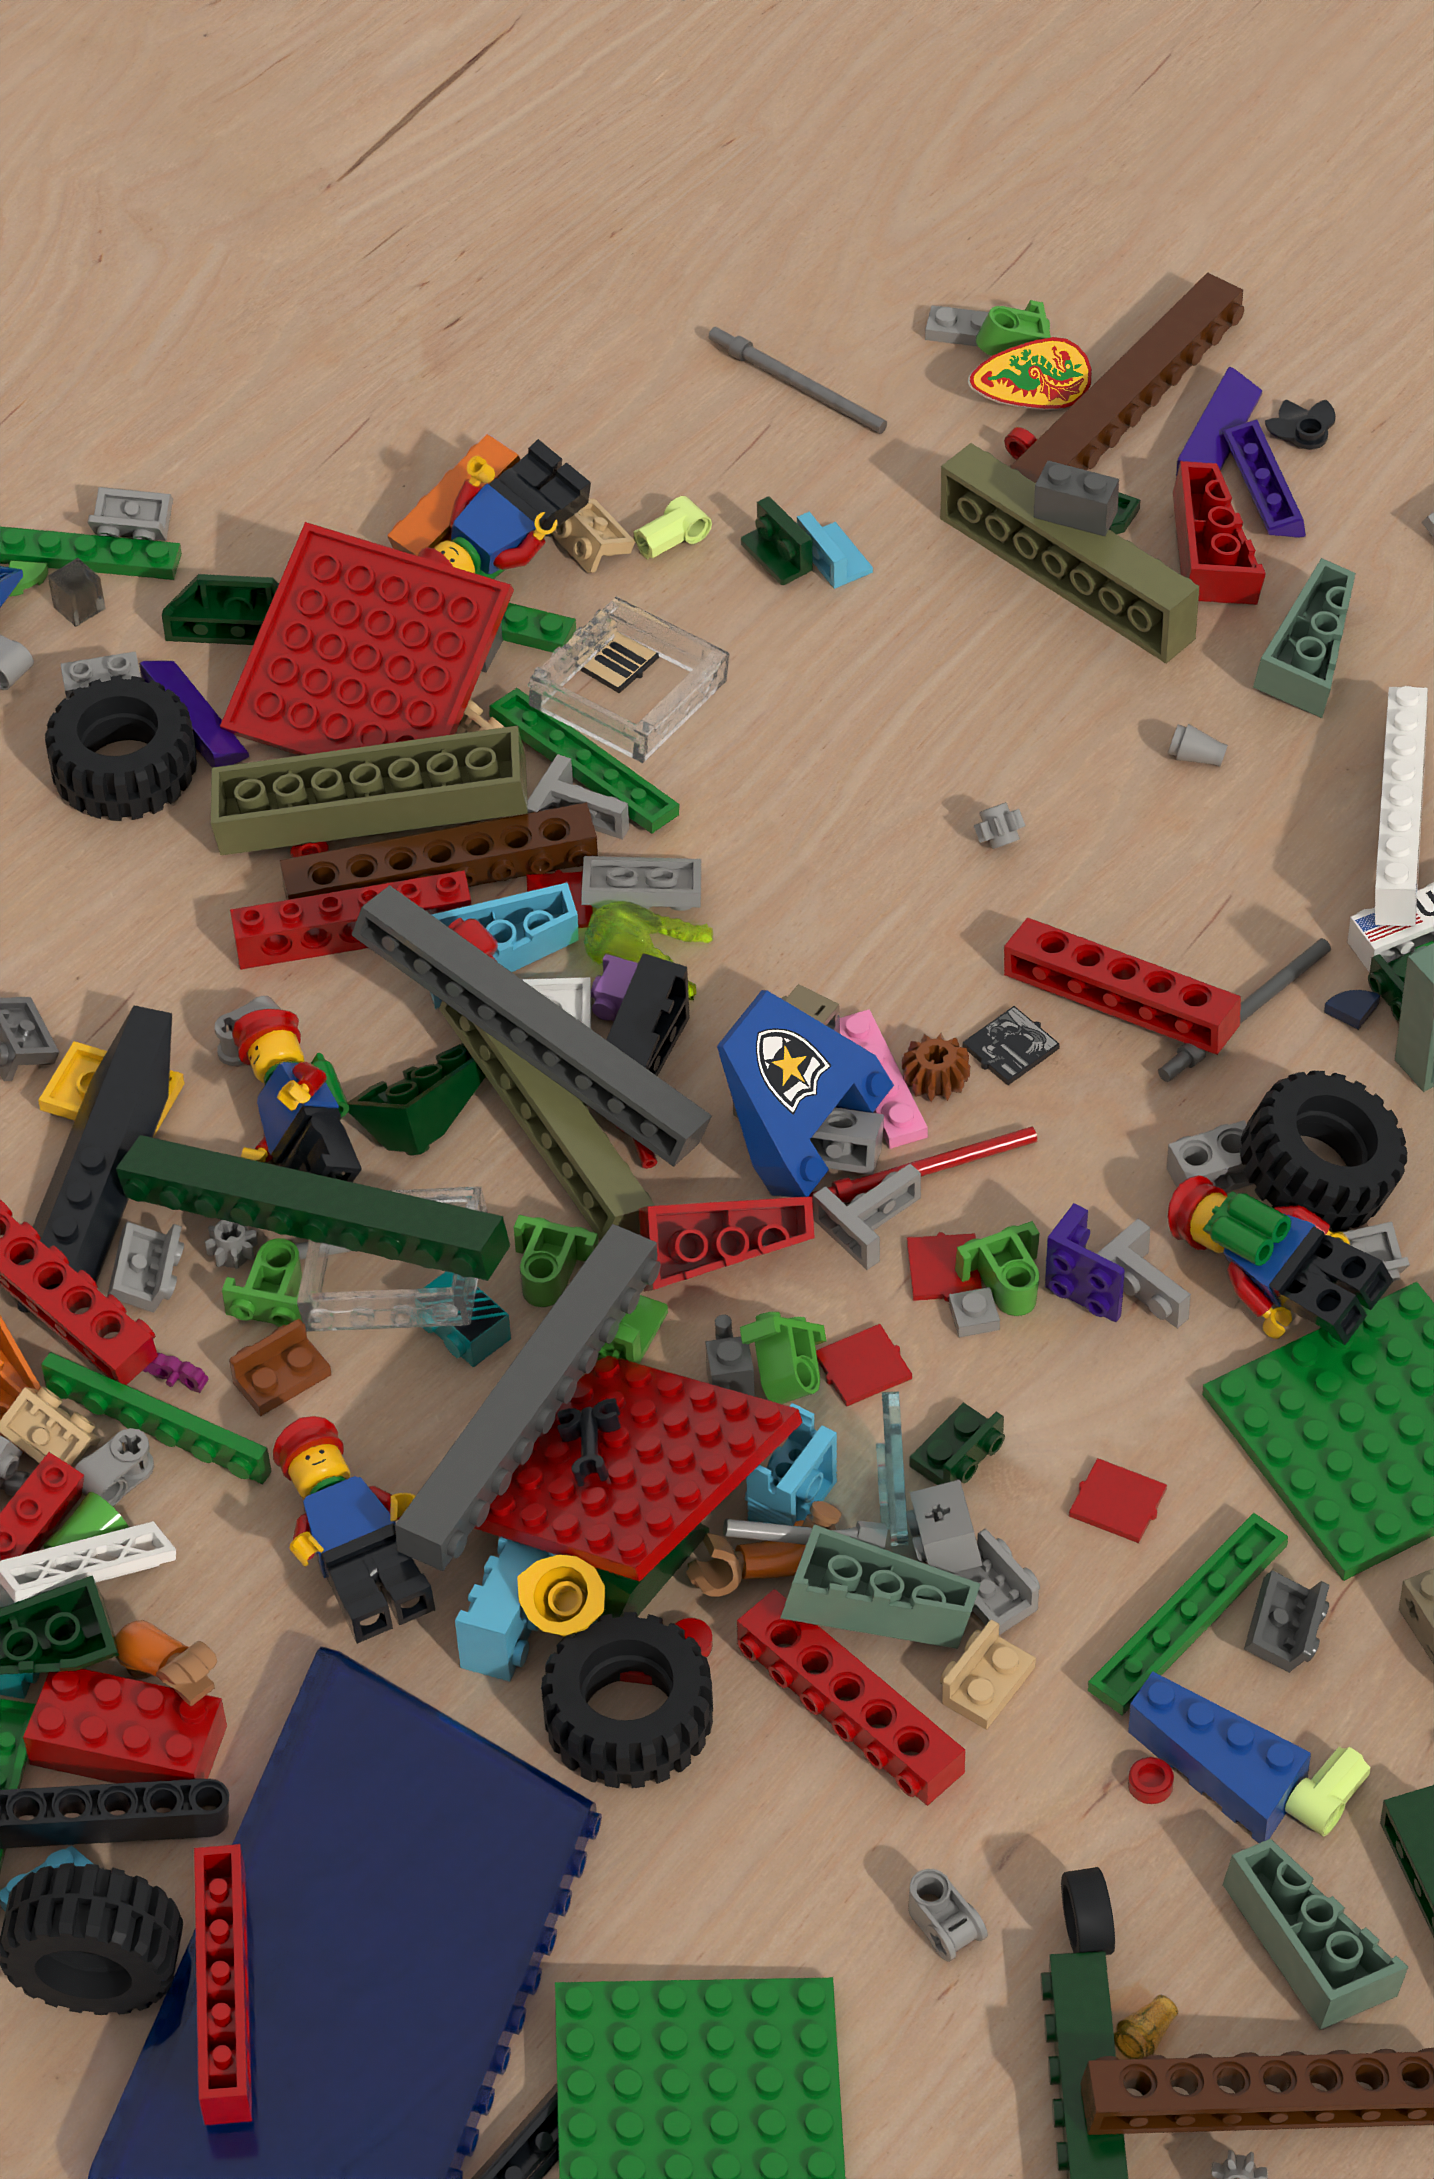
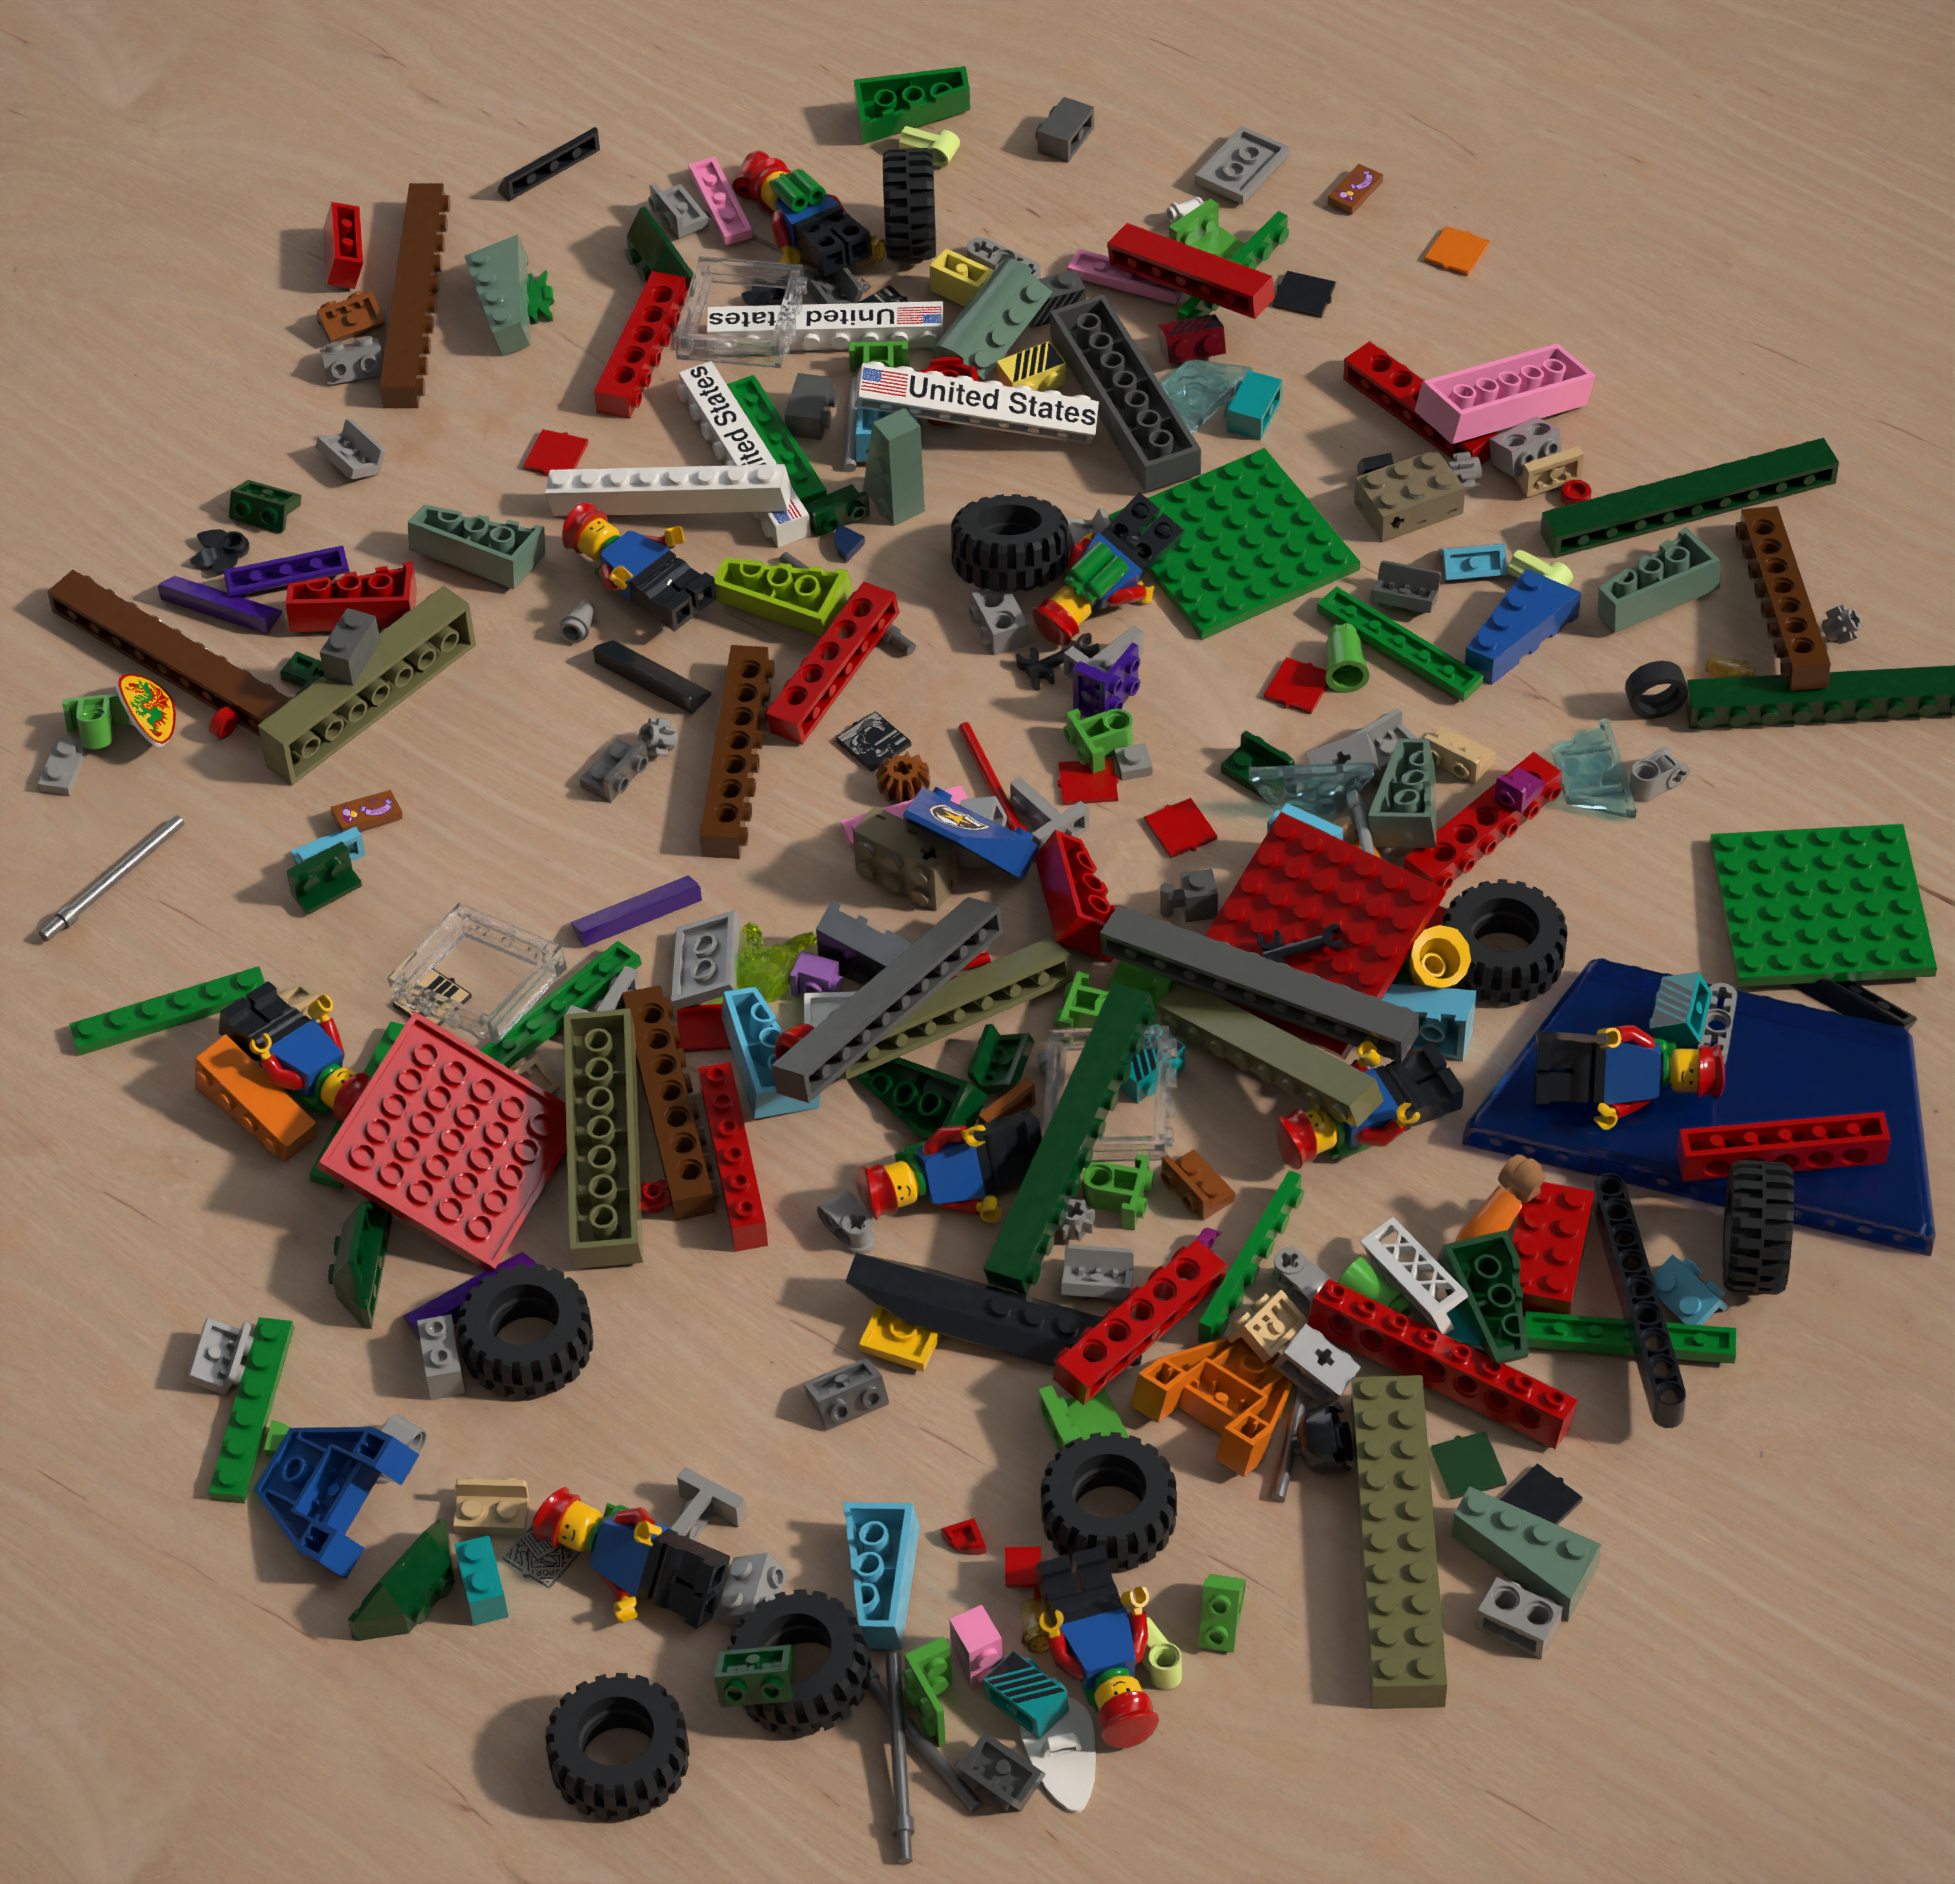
camera: 90 degrees left, 0 degrees up
(76, 592) = (318, 1387): clear smoke brick -> none
(357, 1798) = (1621, 1070): none -> piece
(395, 1168) = (1016, 1100): none -> dark orange tile
(401, 1431) = (1271, 1054): none -> olive brick
(465, 1951) = (1723, 1015): none -> light grey beam
(466, 1879) = (1681, 1009): none -> teal brick
(477, 1161) = (999, 1060): none -> dark green bracket
(607, 444) = (163, 1011): none -> green plate
(680, 522) = (287, 952): yellowish green piece -> none
(736, 826) = (637, 910): none -> dark purple slope
(785, 1355) = (1189, 855): bright green pin -> none
(882, 1718) = (1518, 789): none -> magenta bracket
(888, 578) = (367, 812): none -> dark orange tile
(955, 794) = (615, 769): none -> flat silver bracket
(955, 1833) = (1594, 772): none -> clear light blue wing
(979, 900) = (735, 752): none -> reddish brown brick
(1113, 821) = (650, 675): none -> black slope
(1145, 1209) = (1042, 669): none -> black bar
(1150, 1780) = (1533, 670): red tile -> none
(1153, 1542) = (1345, 660): none -> bright green plant
(1236, 928) = (783, 593): none -> lime wedge
(1262, 780) = (640, 566): none -> piece
(1359, 1708) = (1474, 561): none -> medium azure panel
(1379, 450) = (262, 505): none -> dark green bracket

